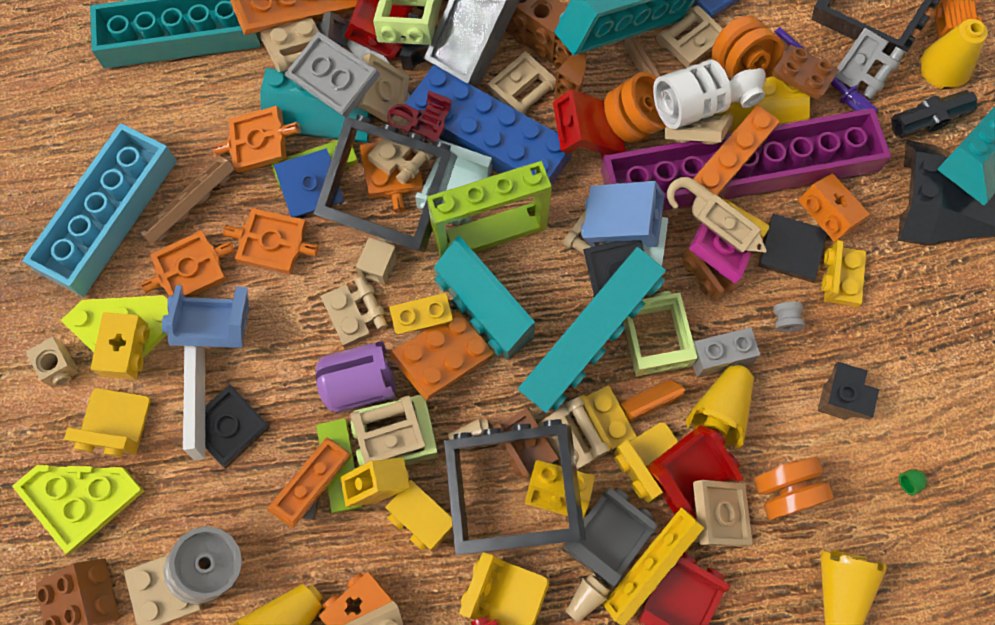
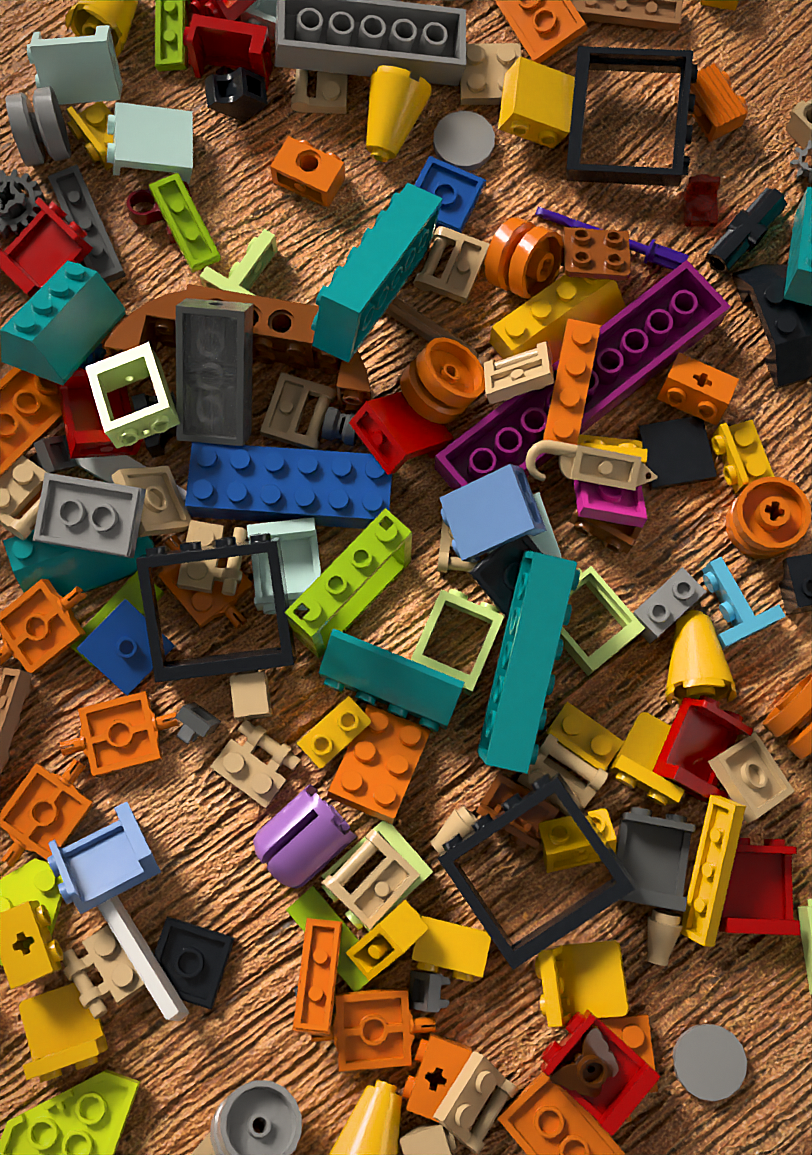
camera: 30 degrees left, 5 degrees up
(171, 397) = (114, 967): none -> tan plate
(327, 259) = (195, 722): none -> dark grey tile
(329, 545) = (374, 1029): none -> orange plate
(384, 538) = (426, 991): none -> dark grey tile
(428, 122) = (224, 514): dark red piece -> none
(543, 107) = (334, 425): none -> dark grey wheel
(566, 271) = (483, 612): none -> yellowish green window
(652, 400) = (618, 693): orange slope -> none
(704, 91) = (508, 336): white cylinder -> none
(778, 383) = (734, 605): none -> medium azure bracket
(789, 317) = (711, 531): light grey wheel -> none
(840, 327) = (768, 517): none -> orange wheel
(862, 57) = (644, 205): light grey plate -> none
(909, 77) = (700, 201): none -> clear red bracket
(954, 56) = (737, 155): yellow cone -> none

